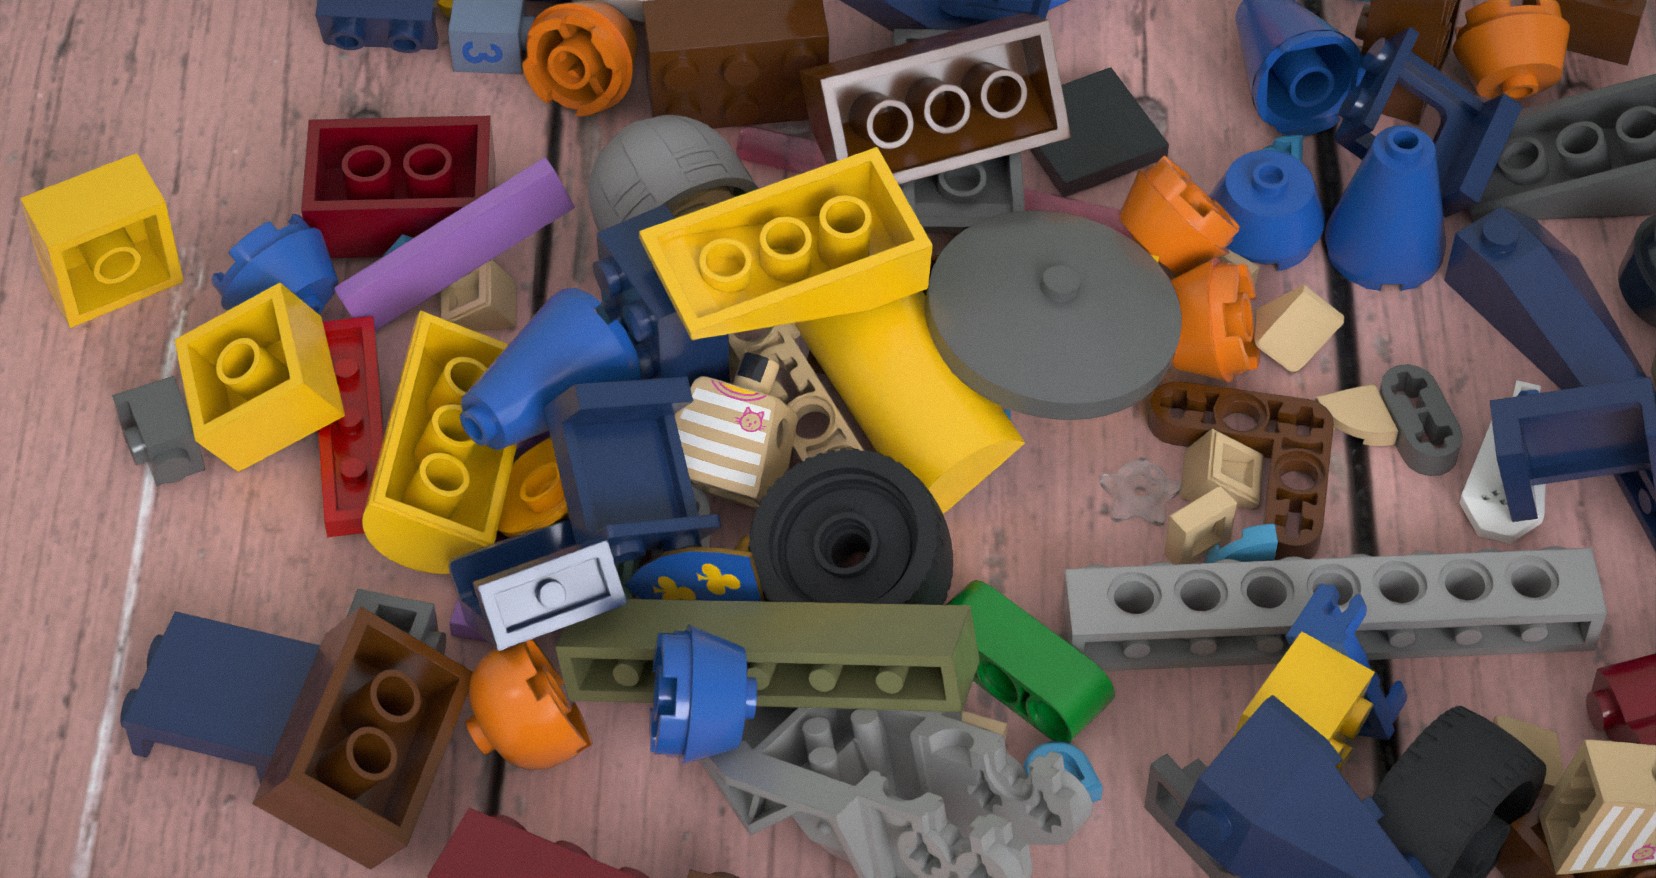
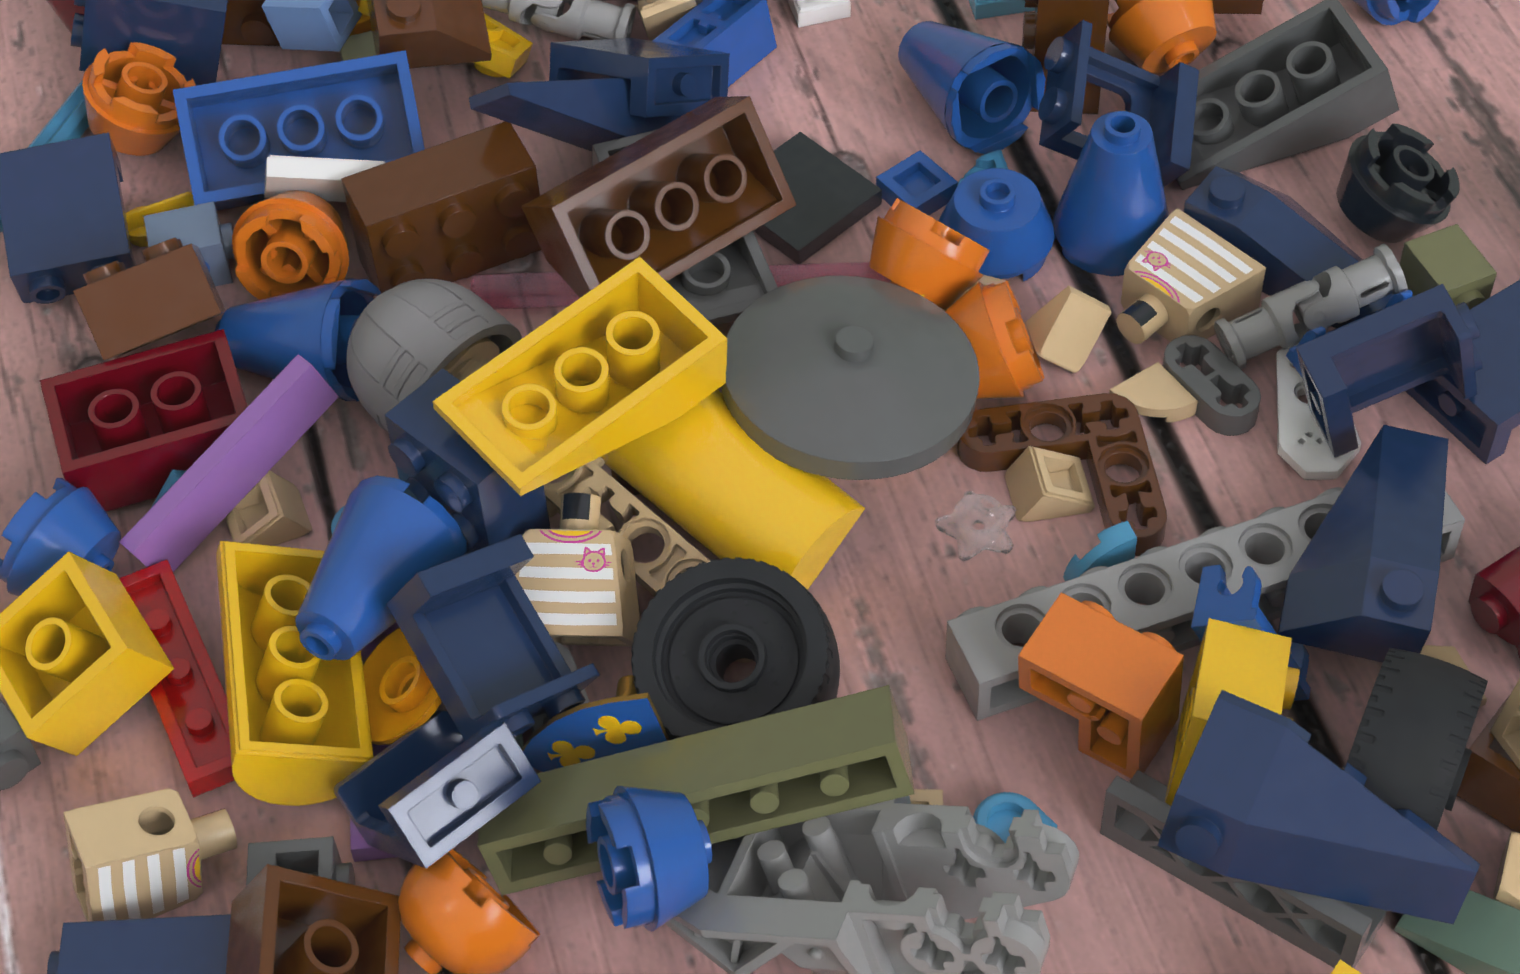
camera: 15 degrees left, 0 degrees up
(263, 571) = (141, 854): none -> tan torso
(432, 71) = (149, 299): none -> reddish brown brick
(563, 131) = (305, 322): none -> blue cone
(1033, 666) = (949, 726): green beam -> none
(1189, 661) = (1107, 677): none -> orange brick
(1200, 527) = (1053, 544): tan tile -> none
(1204, 149) = (917, 183): none -> blue tile
(1432, 314) = (1186, 282): none -> tan torso
(1499, 619) = (1377, 554): none -> dark blue wedge
(1551, 367) = (1323, 301): none -> light grey piece

